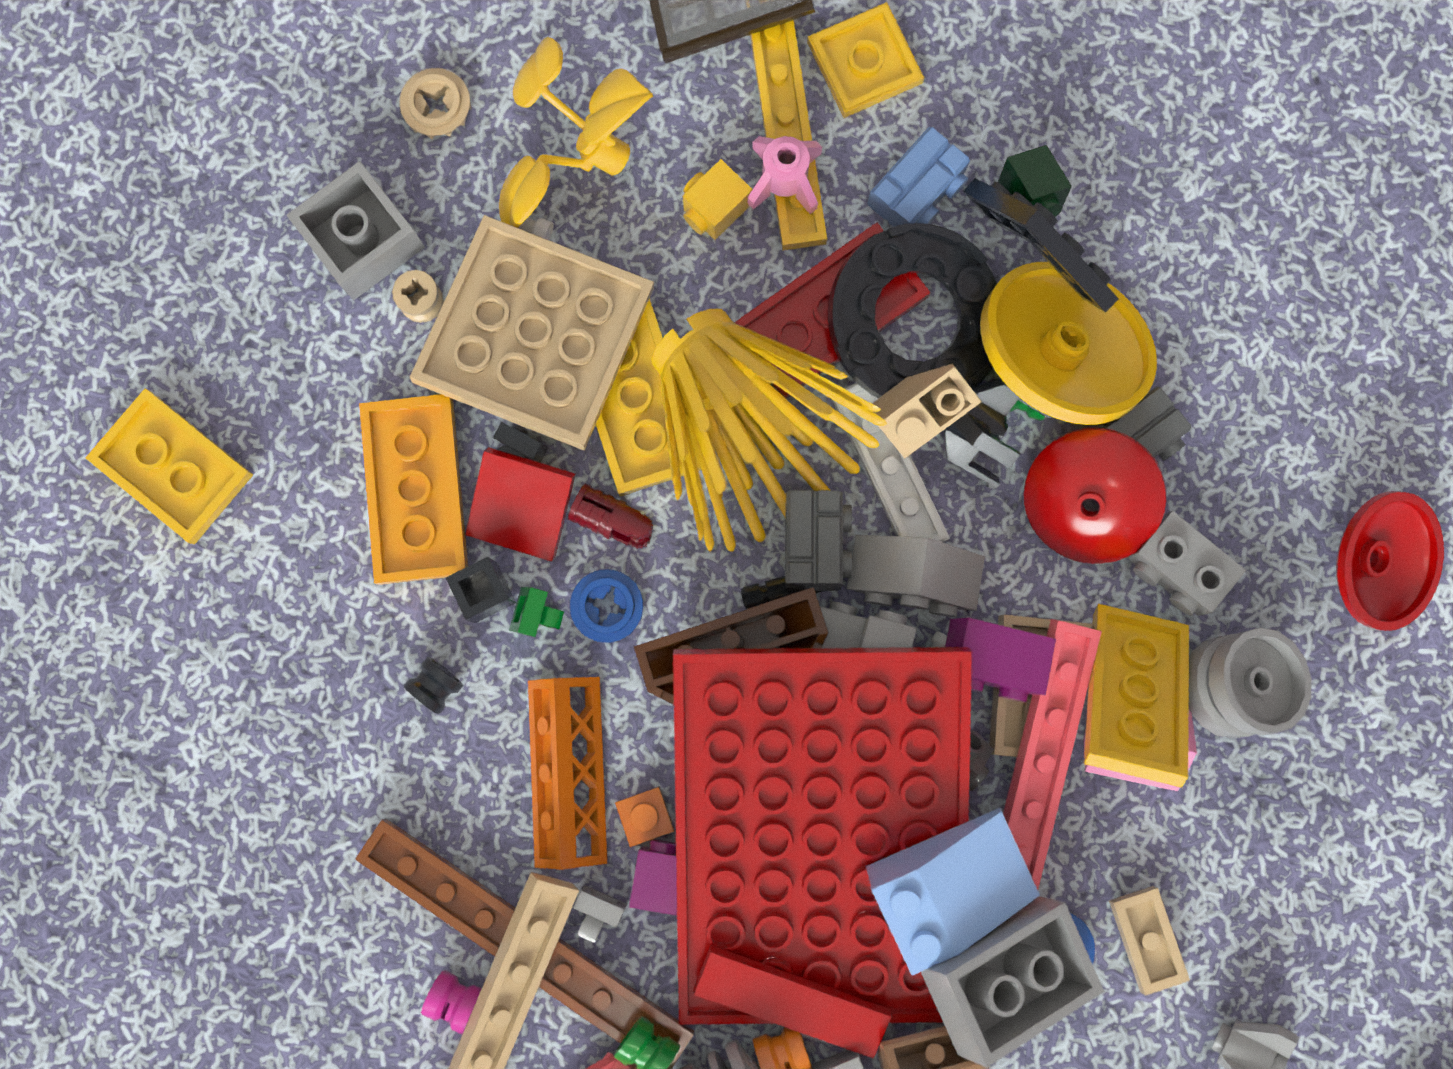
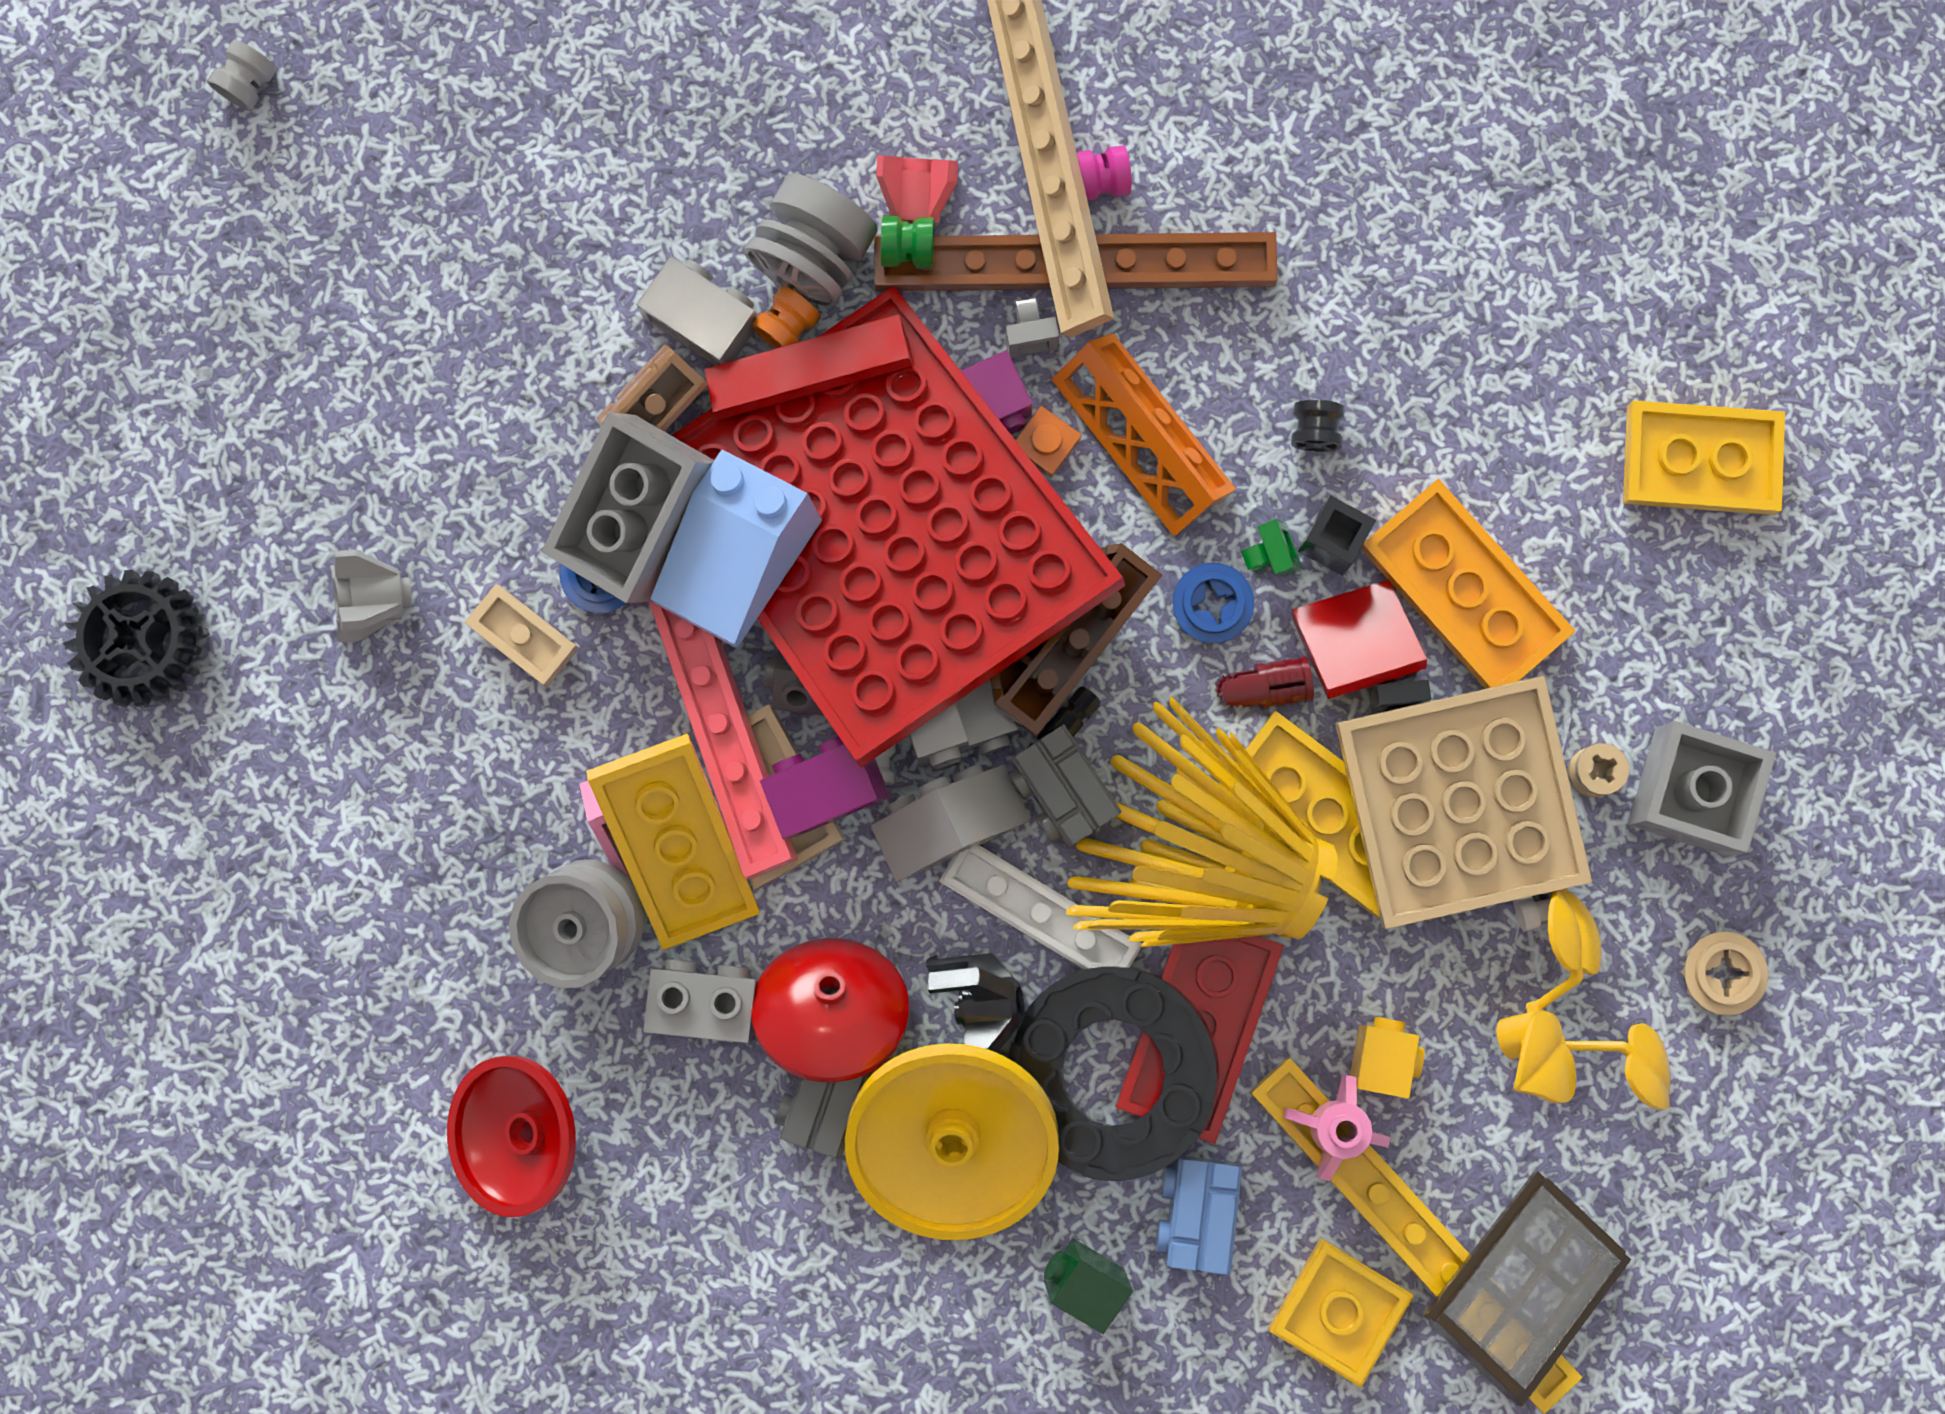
camera: 145 degrees right, 0 degrees up
(924, 407) = (1049, 972): tan slope -> none
(1037, 227) = (1058, 1222): black plate -> none

